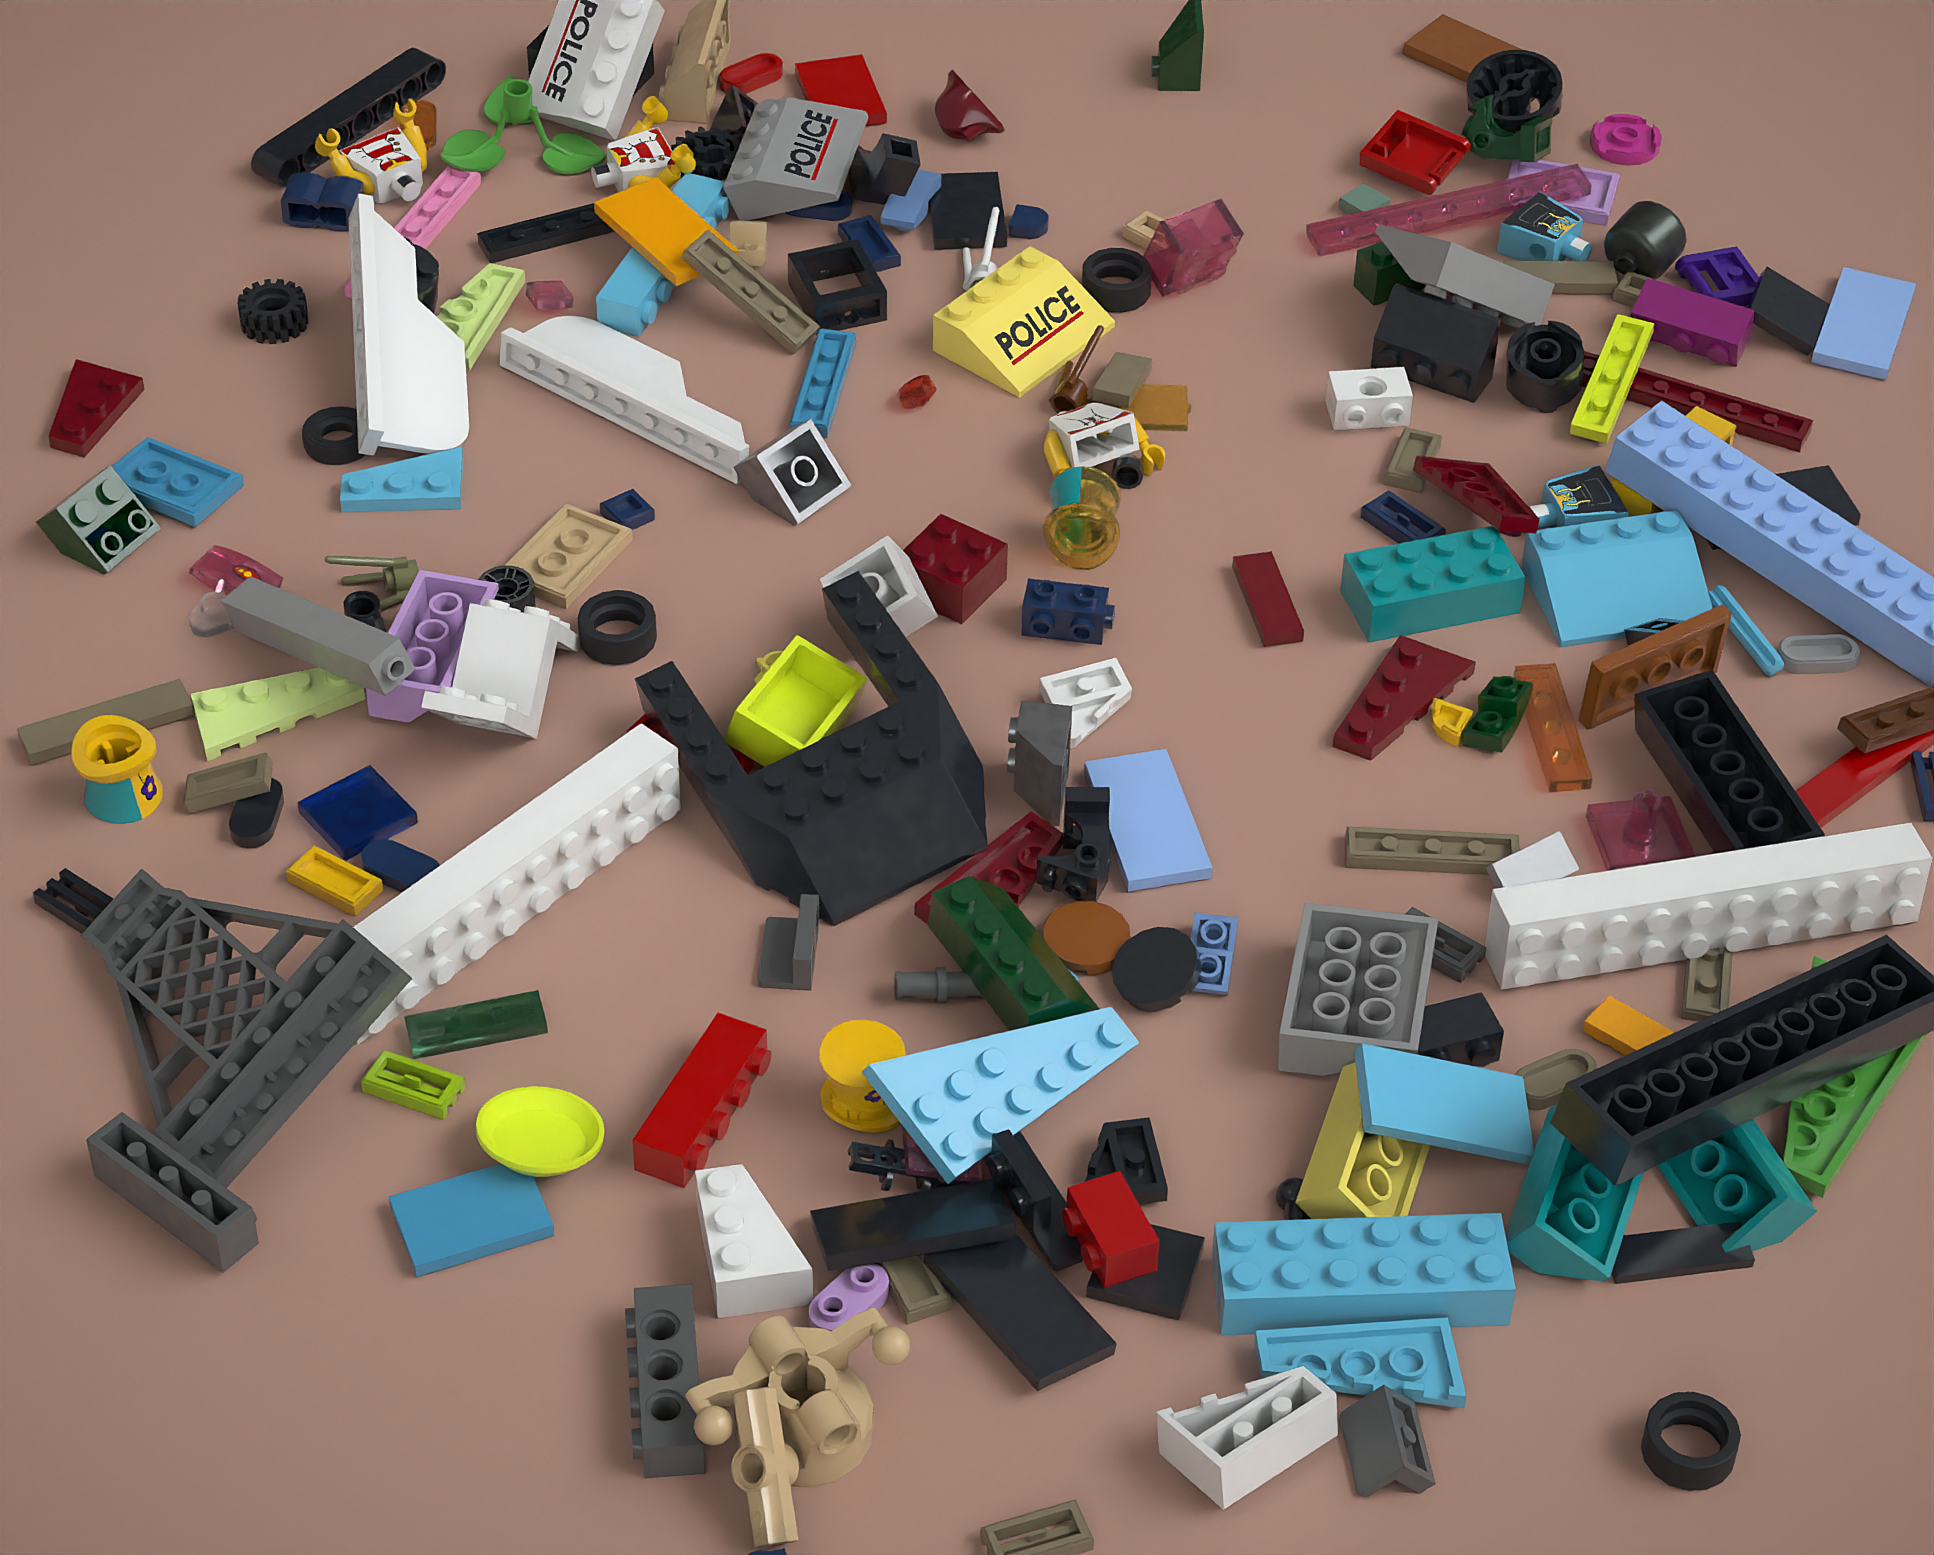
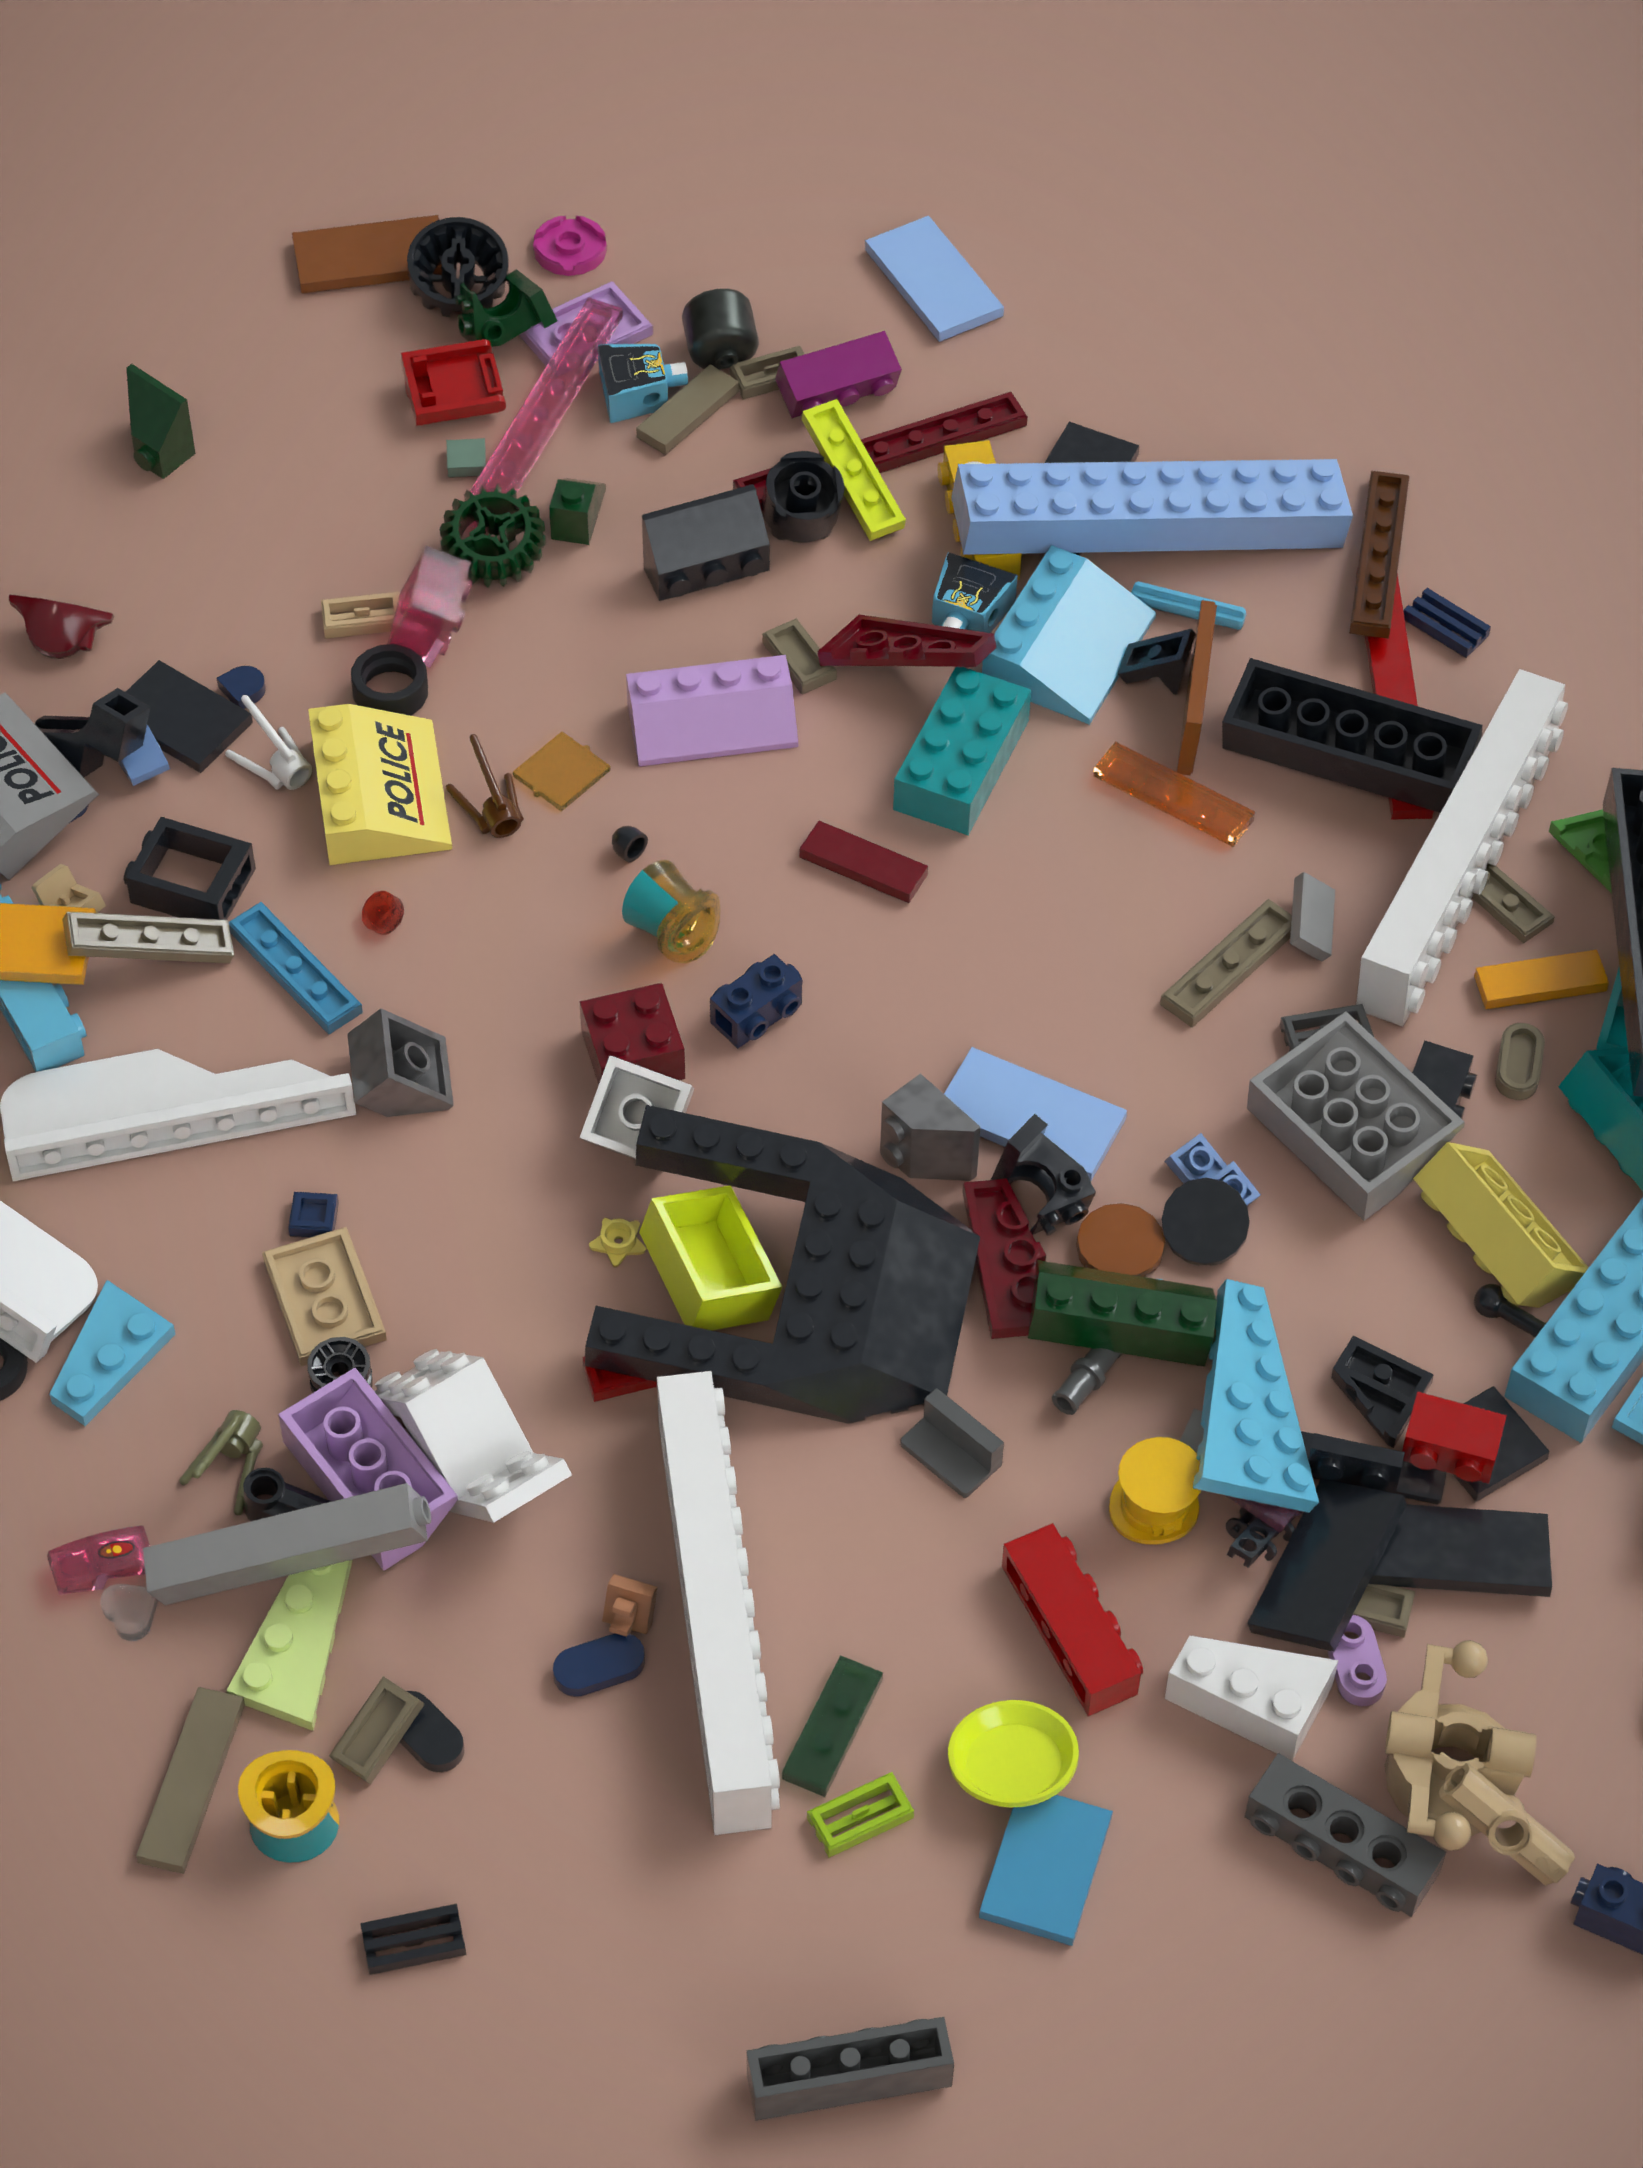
camera: 50 degrees left, 10 degrees up
(274, 1048) = (799, 1892): dark grey wing -> none
(334, 880) = (565, 1724): yellow tile -> none
(357, 812) = (498, 1655): clear blue tile -> none
(454, 840) = (629, 1605): none -> nougat tile
(621, 647) = (466, 1289): black tyre -> none
(873, 240) = (142, 809): dark blue tile -> none
(1093, 693) = (863, 1057): white wing -> none
(1096, 436) = (577, 840): white torso -> none
(1122, 379) = (518, 767): dark tan tile -> none
(1298, 440) = (712, 710): none -> lavender slope
(1303, 246) = (499, 516): none -> dark green gear
(1369, 398) = (711, 628): white brick -> none
(1398, 526) = (863, 720): dark blue tile -> none
(1398, 694) = (1049, 858): dark red wing -> none
(1443, 1104) = (1514, 1145): medium azure tile -> none
(1449, 720) = (1106, 850): yellow tile -> none
(1469, 277) = (664, 466): light grey slope -> none
(1498, 714) = (1134, 816): dark green slope -> none
(1638, 831) = (1332, 828): clear pink tile -> none
(1728, 271) = (804, 310): dark purple plate -> none
(1788, 311) = (883, 308): black tile -> none
(1818, 653) = (1251, 581): light grey tile -> none

